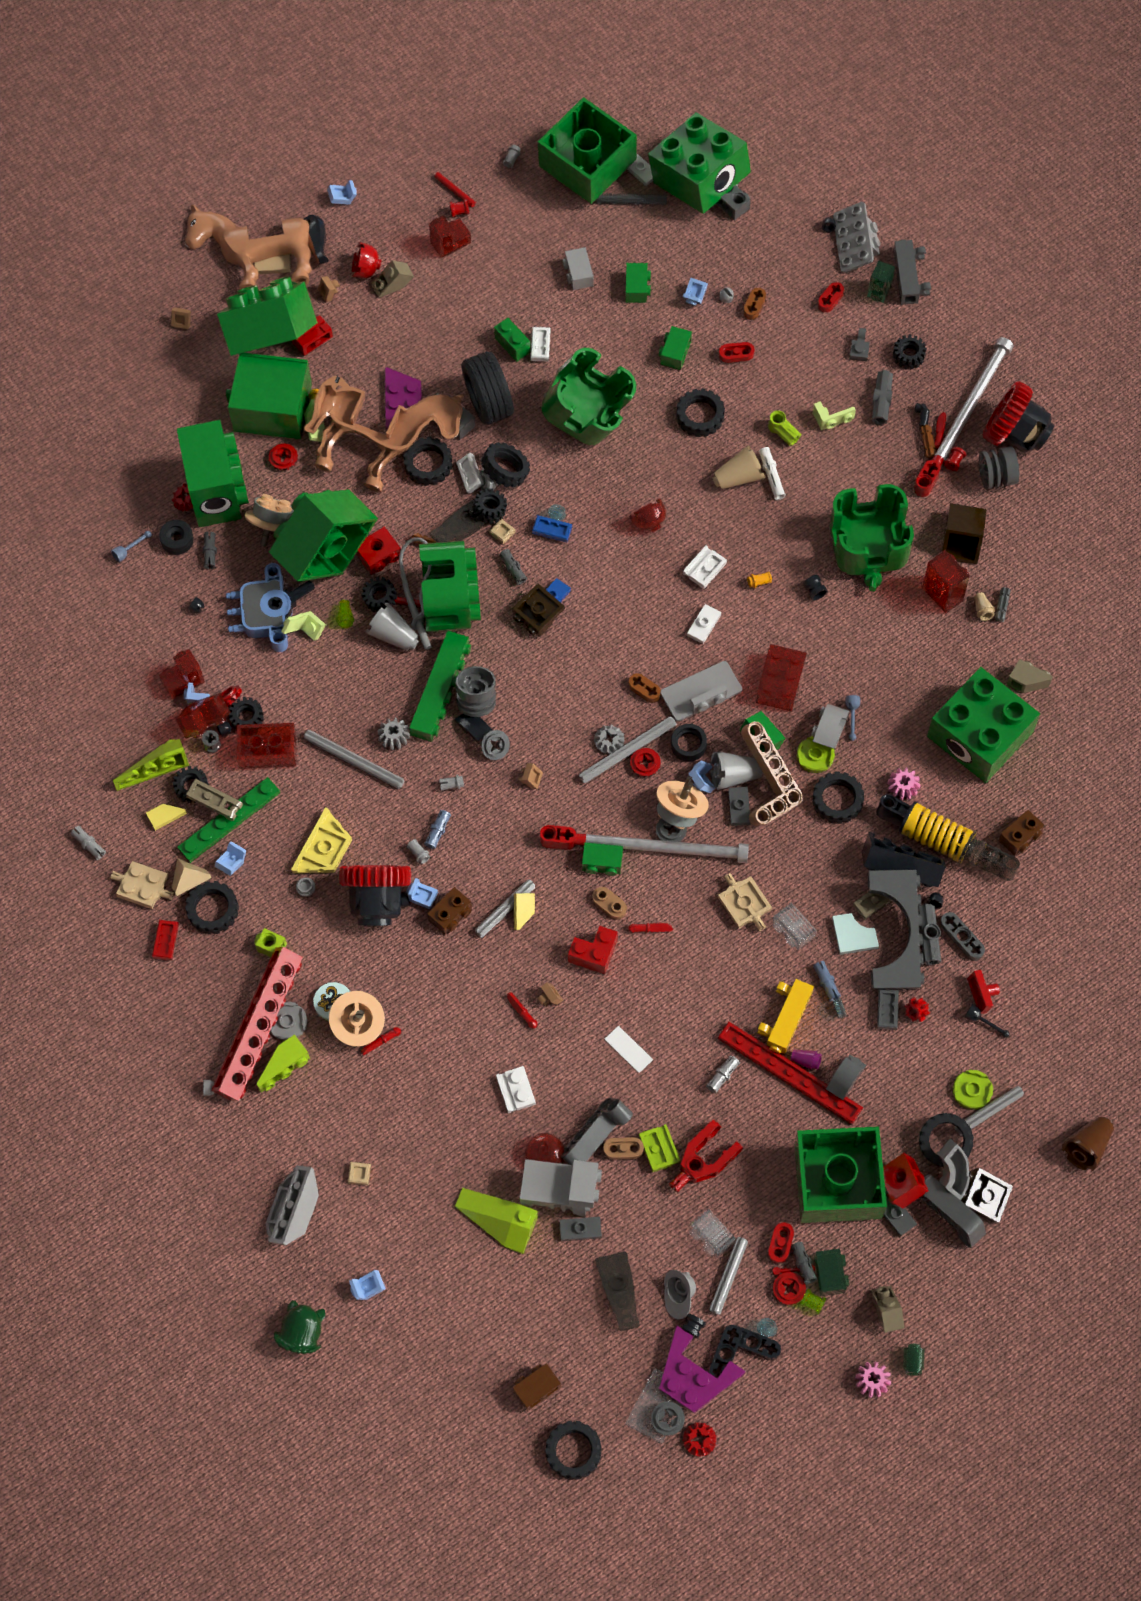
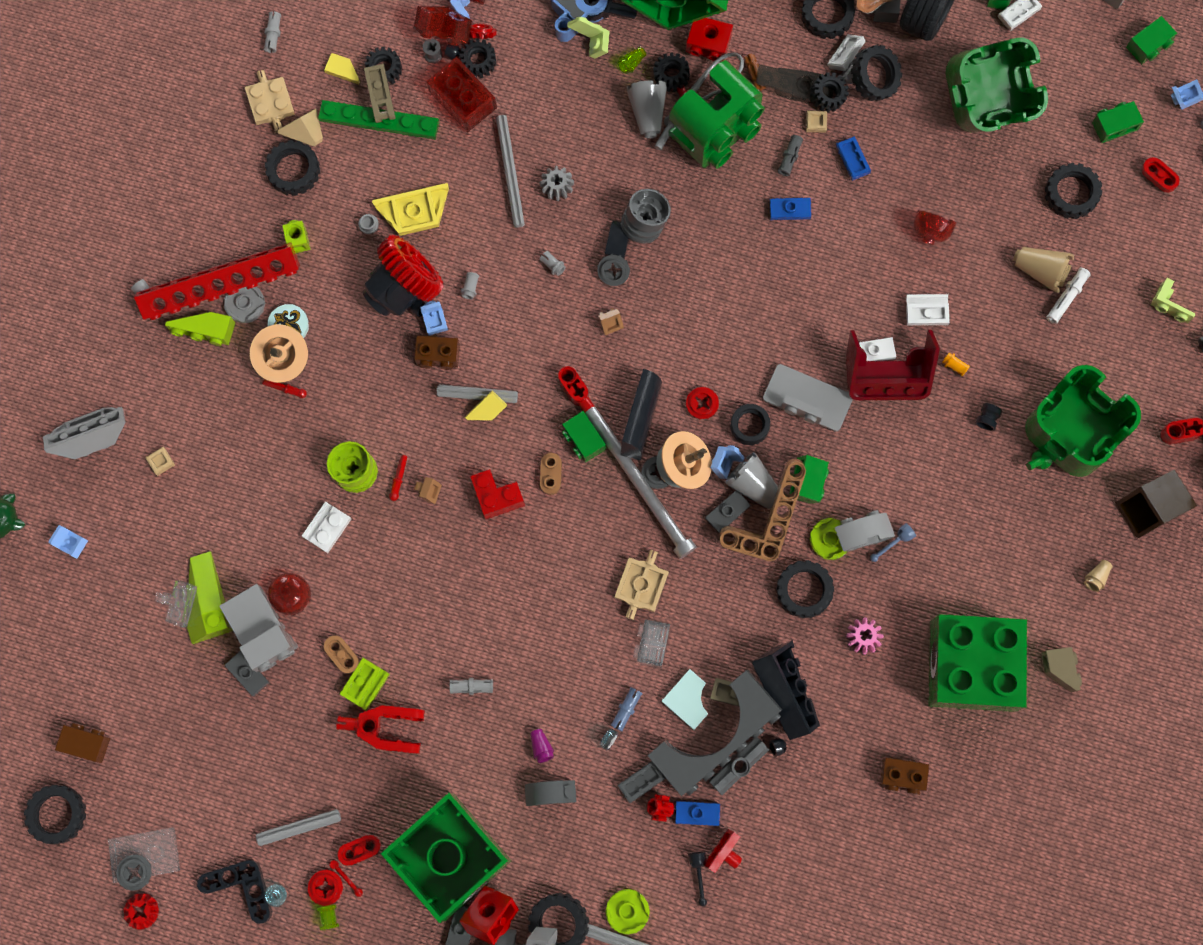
camera: 55 degrees right, 10 degrees up
(159, 762) = (381, 26): lime wedge -> none
(165, 940) = (237, 155): red plate -> none
(231, 859) = (343, 148): light blue bracket -> none
(437, 829) = (502, 285): sand blue pin -> none
(439, 686) = (619, 188): green brick -> none
(486, 1236) = (179, 603): none -> clear plate
(489, 1022) = (344, 460): none -> lime wheel
(537, 610) = (765, 206): dark brown plate -> none
(556, 512) = (871, 150): clear light blue plate -> none
(596, 1129) = (335, 619): dark grey beam -> none
(606, 746) = (703, 365): light grey gear -> none
(619, 1288) = (218, 746): clear smoke piece -> none
(621, 807) = (641, 415): none -> black brick
(627, 749) = (702, 379): light grey axle -> none
(628, 1049) = (434, 591): white sticker -> none
(645, 686) = (765, 349): dark orange beam -> none
(652, 927) = (557, 525): red piece -> none
(678, 1293) = (250, 798): light grey piece -> none
(690, 1383) = (178, 865): magenta wing -> none
(693, 1325) = (230, 831): black wheel -> none
(711, 1233) = (322, 785): clear brick -> none
(736, 626) = (891, 379): none -> dark red windscreen
(781, 677) = (876, 454): clear red brick -> none
(784, 428) = (1121, 272): lime piece -> none
(789, 1017) = (567, 702): yellow brick -> none
(789, 1072) = (518, 740): red tile -> none
(803, 1262) = (355, 883): dark grey pin -> none
(831, 1272) = (364, 913): clear green brick -> none
(940, 989) = (697, 813): none -> blue plate
(945, 581) = (1090, 524): clear red brick -> none
(957, 843) = (845, 726): piece -> none
(962, 944) = (772, 780): dark grey beam -> none
(1002, 604) = (1116, 591): dark grey axle -> none

